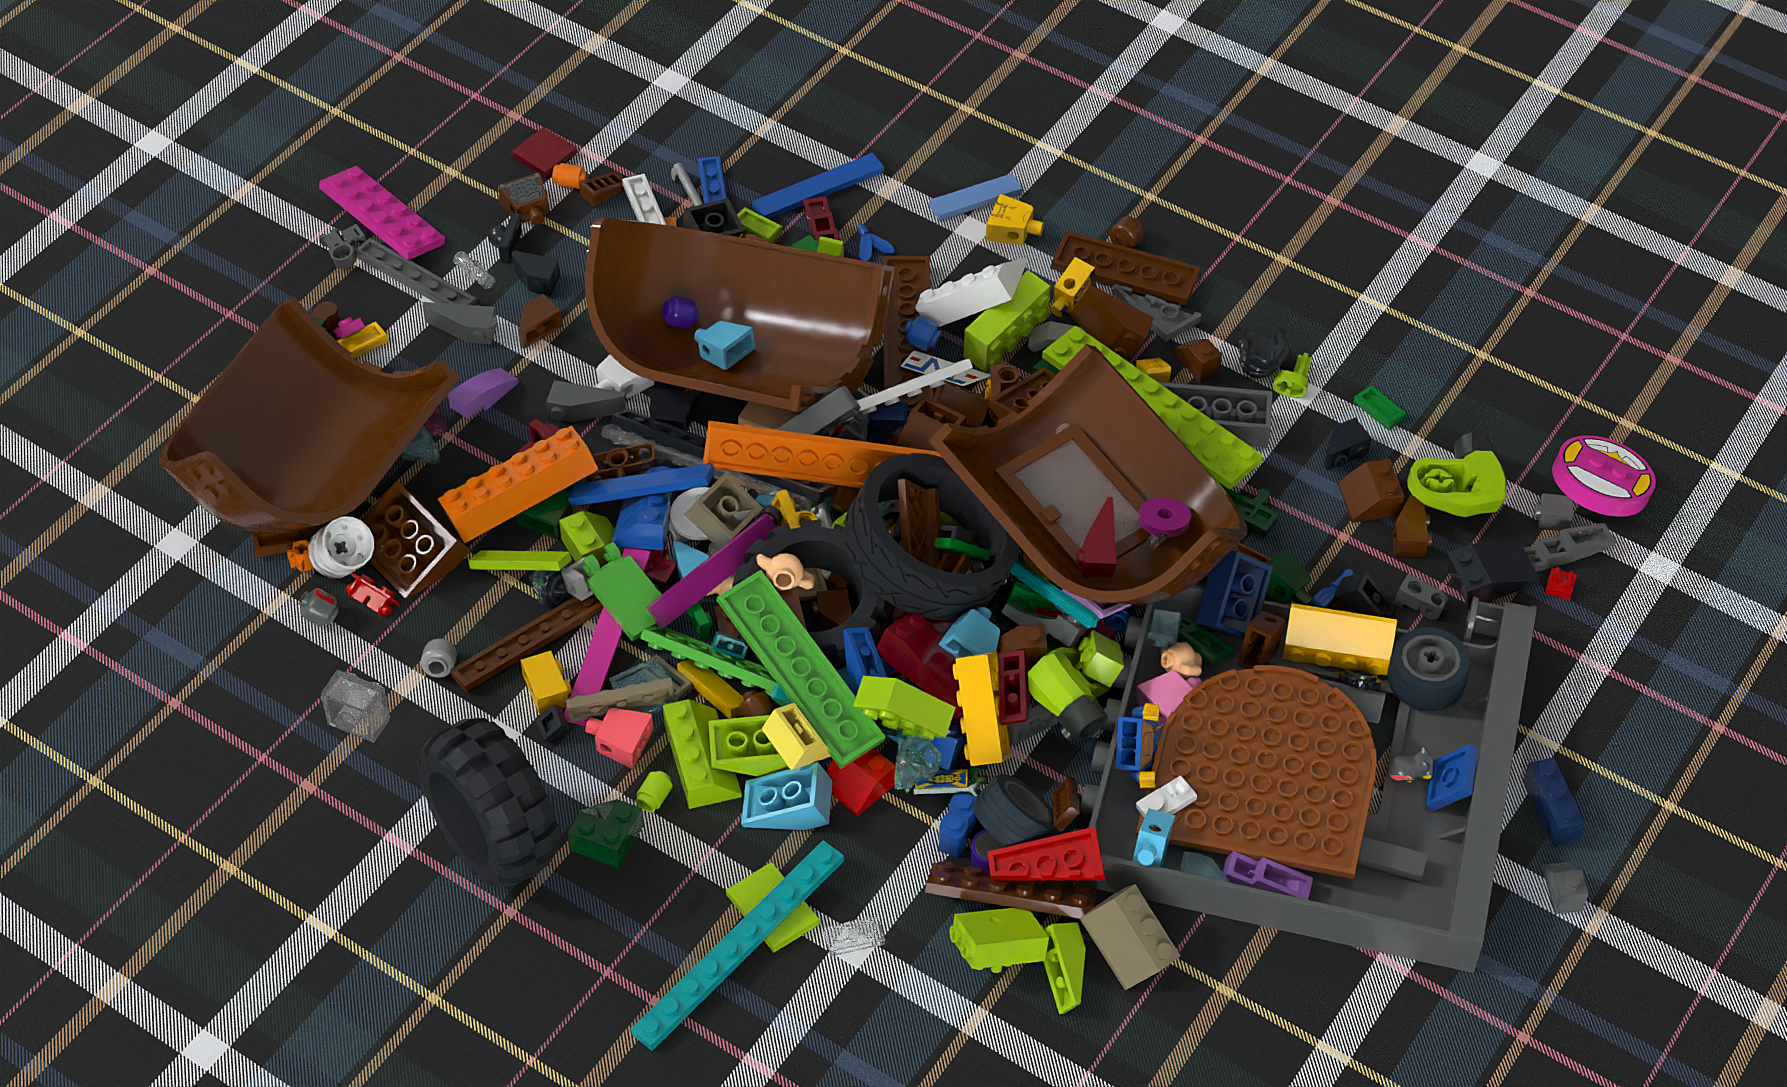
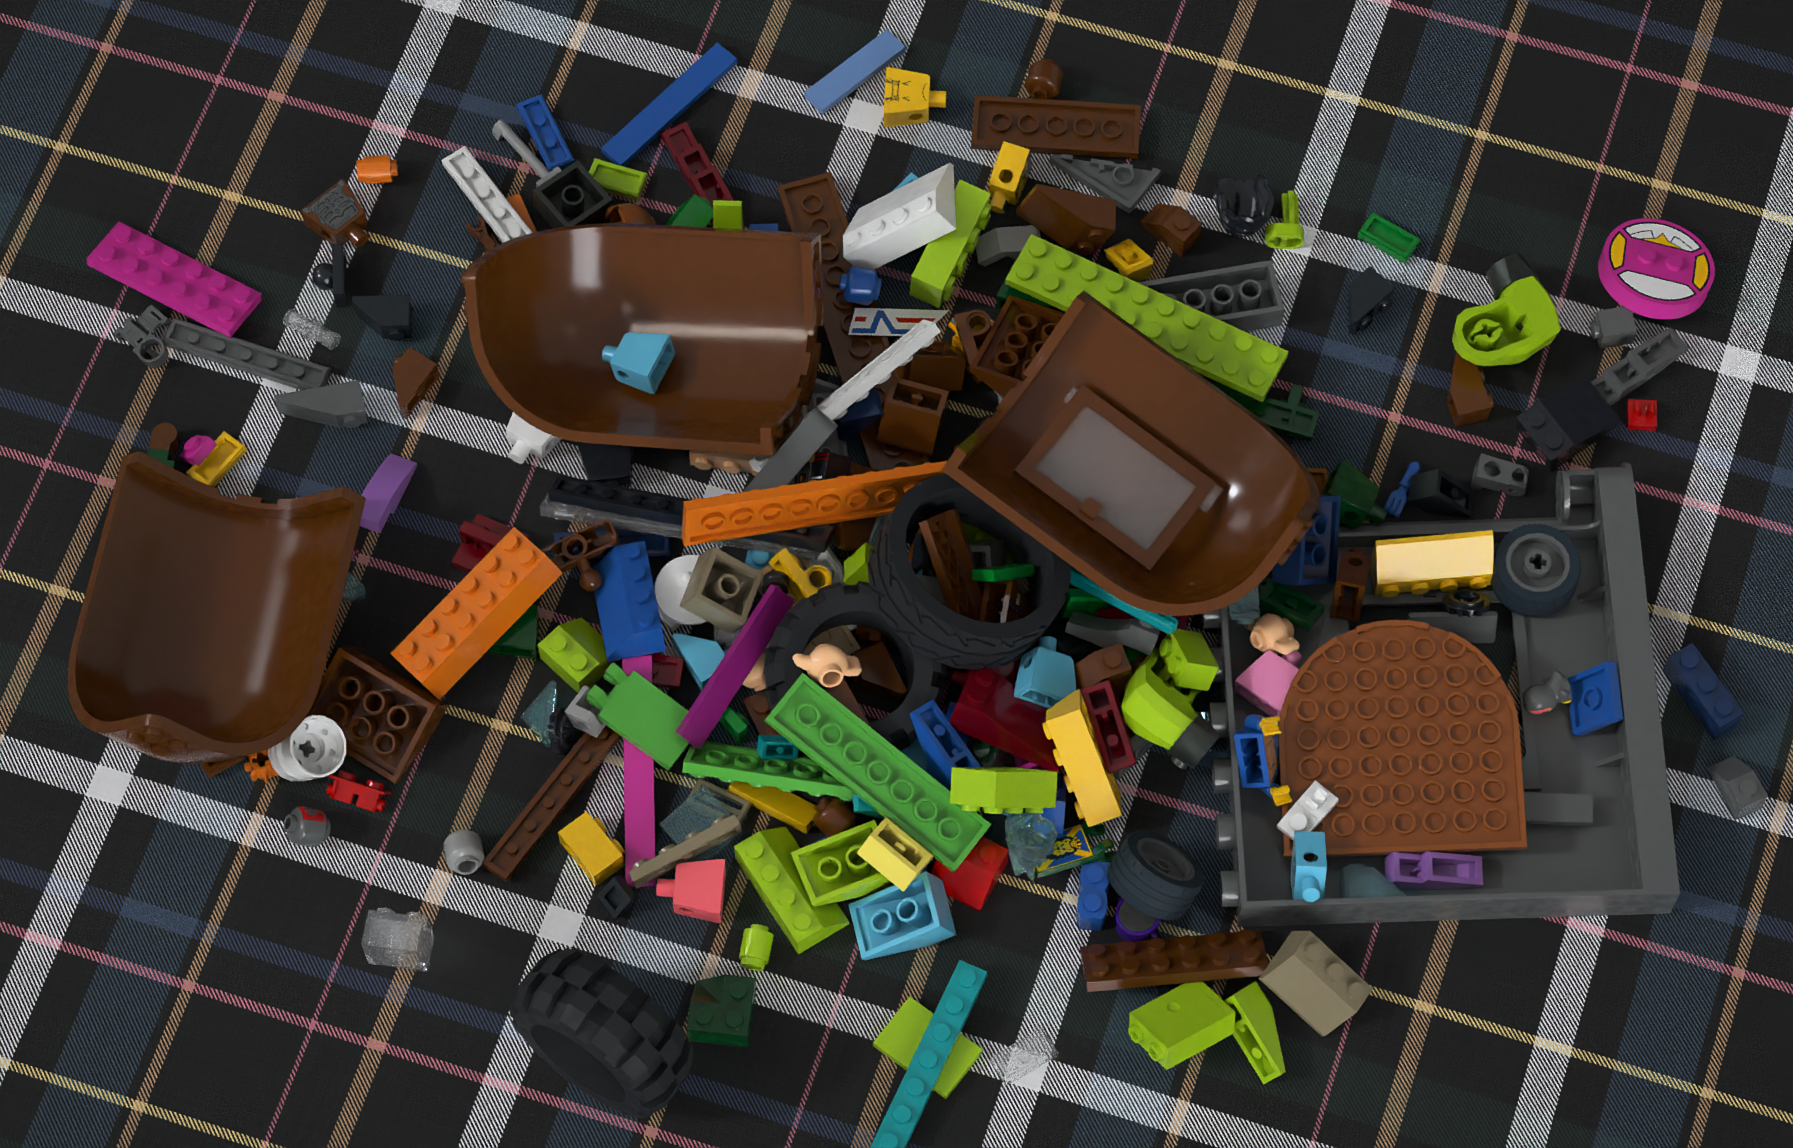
camera: 15 degrees left, 15 degrees up
(520, 560) = (511, 706): lime tile -> none
(544, 151) = (332, 141): dark red tile -> none
(580, 402) = (499, 477): dark grey slope -> none
(593, 192) = (416, 192): reddish brown slope -> none
(641, 485) = (619, 580): blue tile -> none
(679, 312) = (575, 331): dark purple head -> none
(870, 240) = (752, 165): blue piece -> none
(1058, 857) = (1216, 920): red wing -> none
(1065, 803) = (1201, 844): reddish brown plate -> none
(1099, 546) = (1156, 538): dark red slope -> none
(1176, 511) = (1214, 463): magenta tile -> none
(1372, 491) = (1411, 354): reddish brown slope -> none

